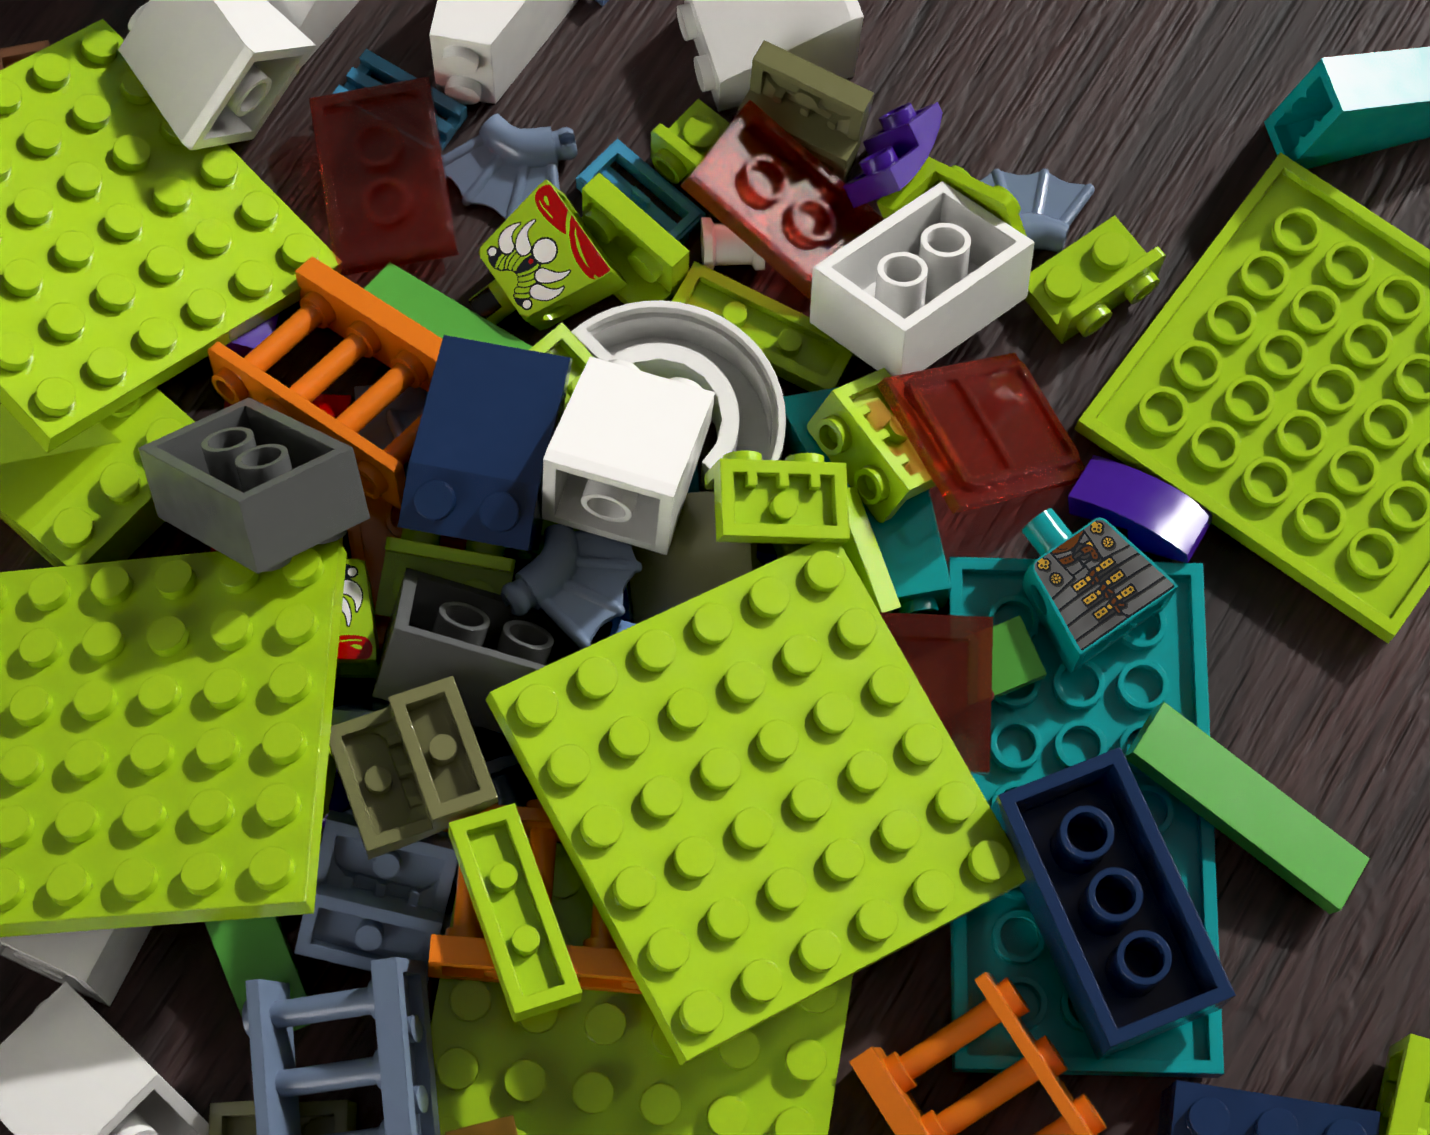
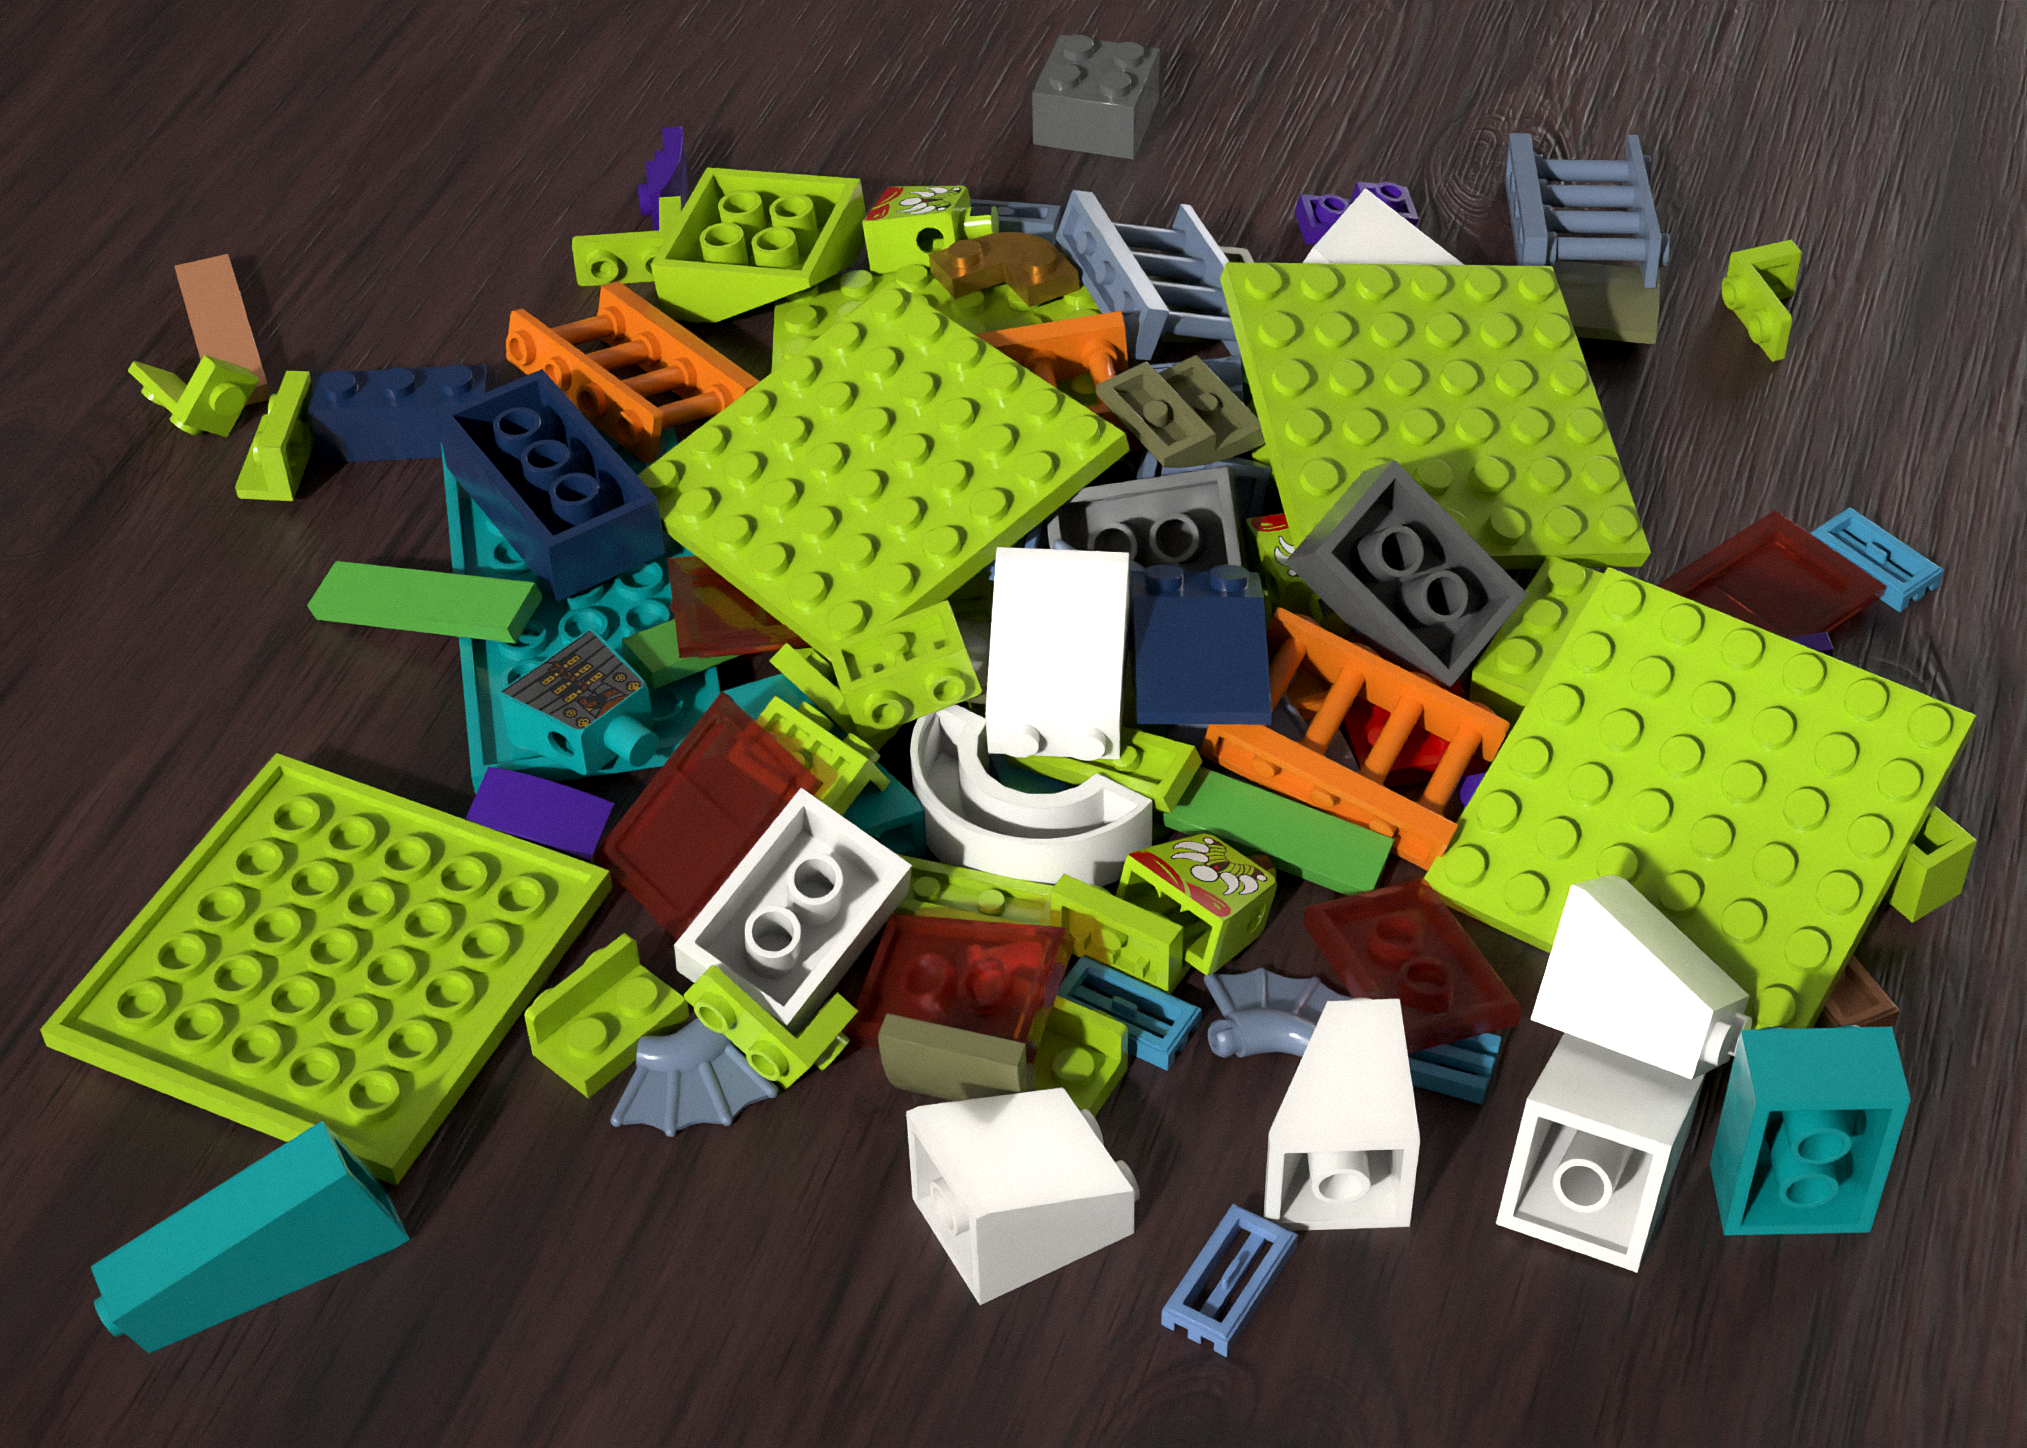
camera: 175 degrees right, 25 degrees down
(514, 912) = (1056, 331): lime plate -> none
(895, 152) = (837, 1082): dark purple slope -> none

